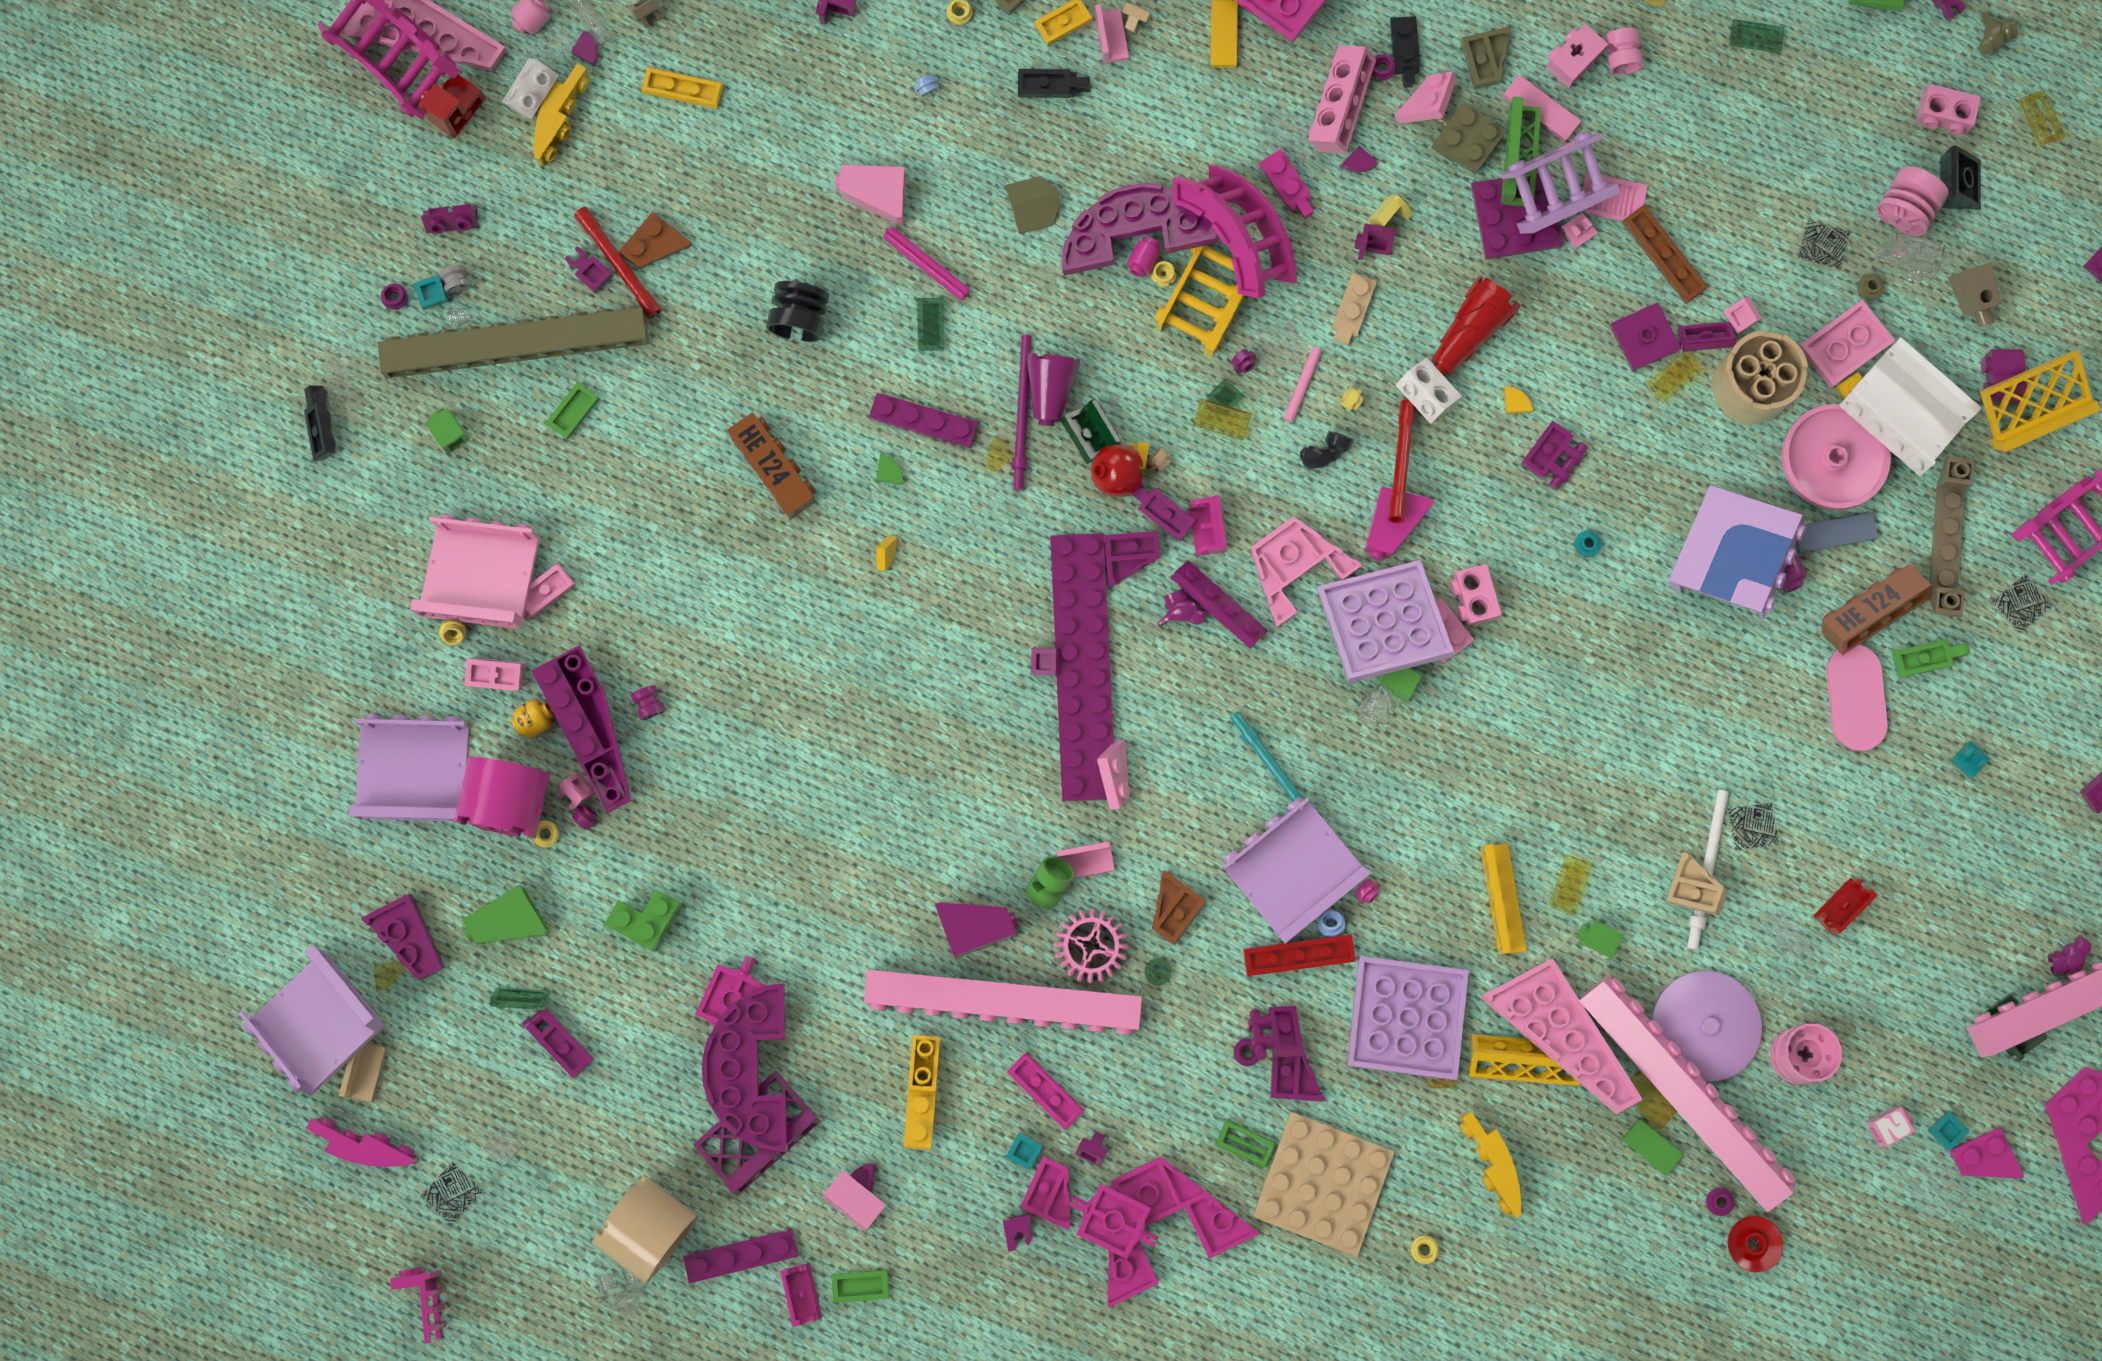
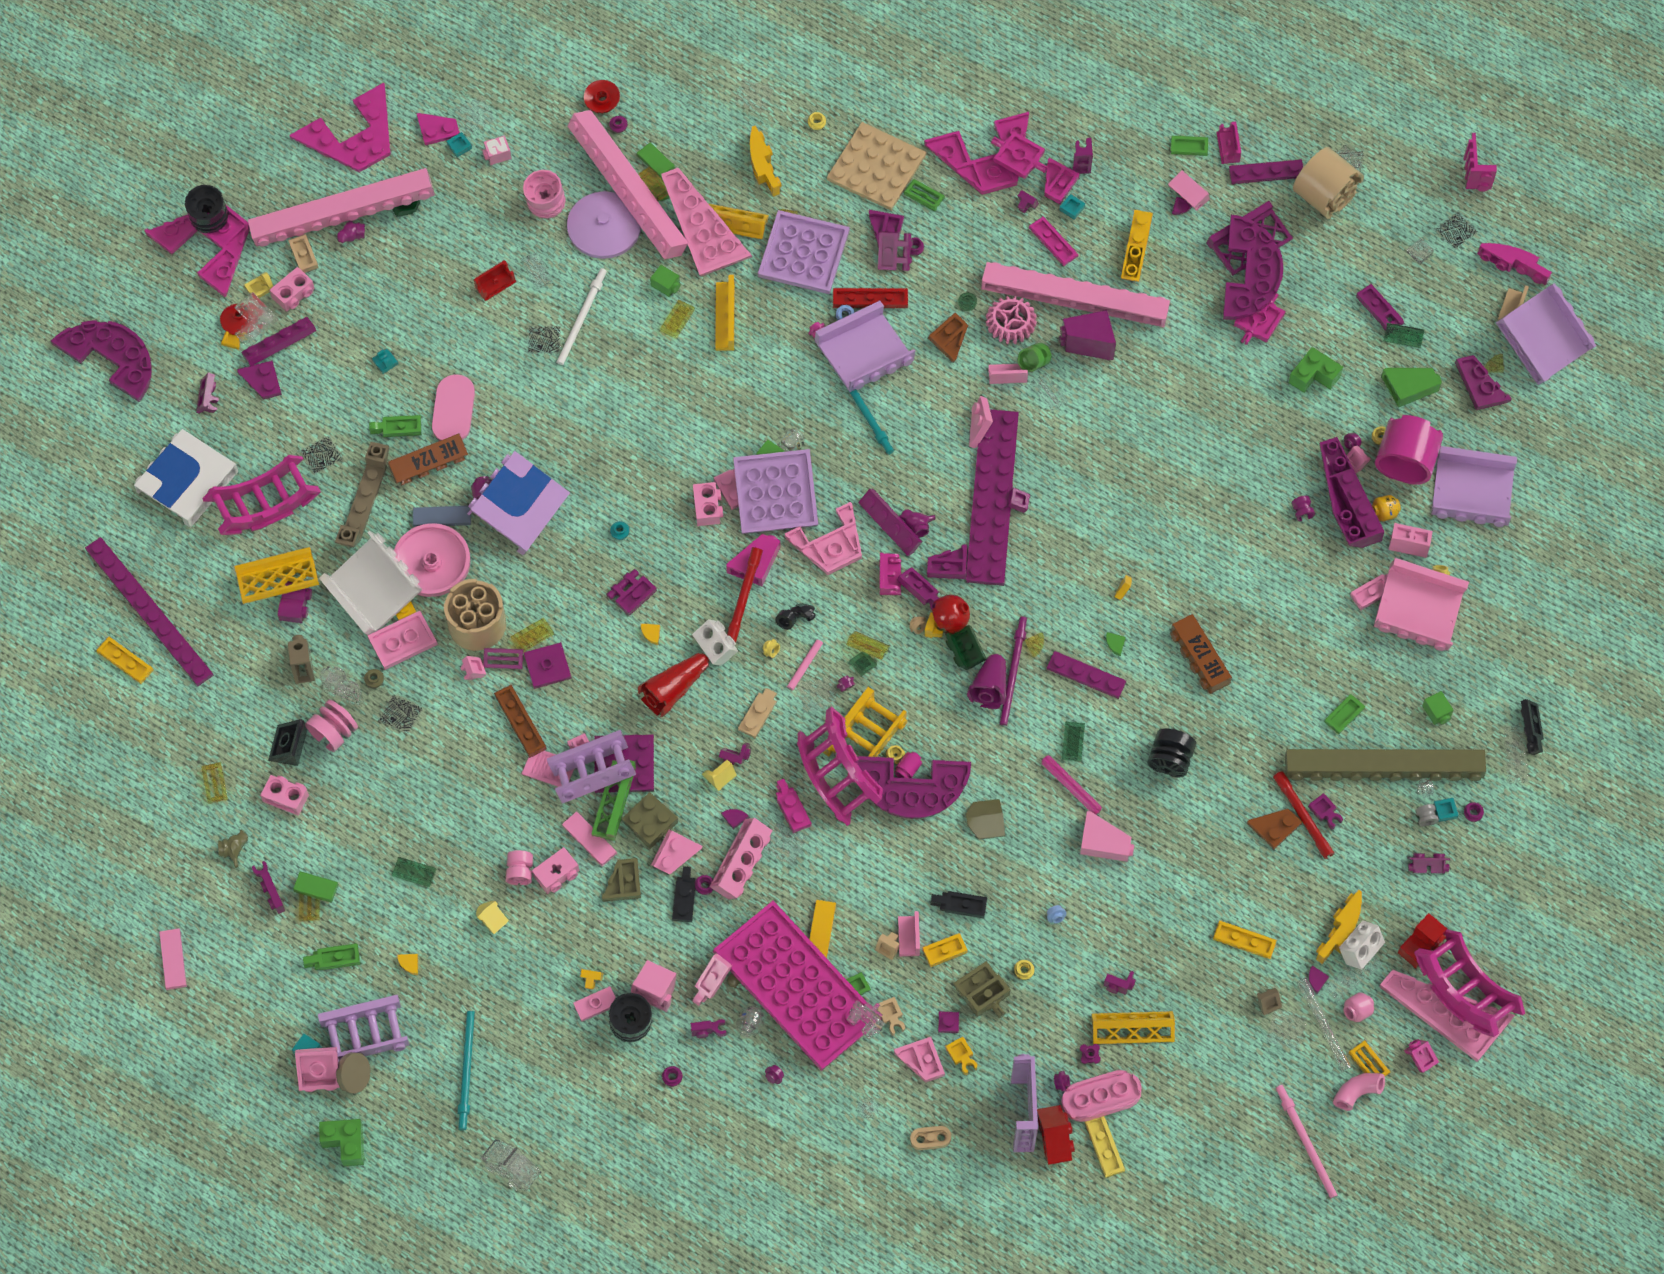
camera: 170 degrees left, 15 degrees down
(1696, 888) = (593, 302): tan wing -> none

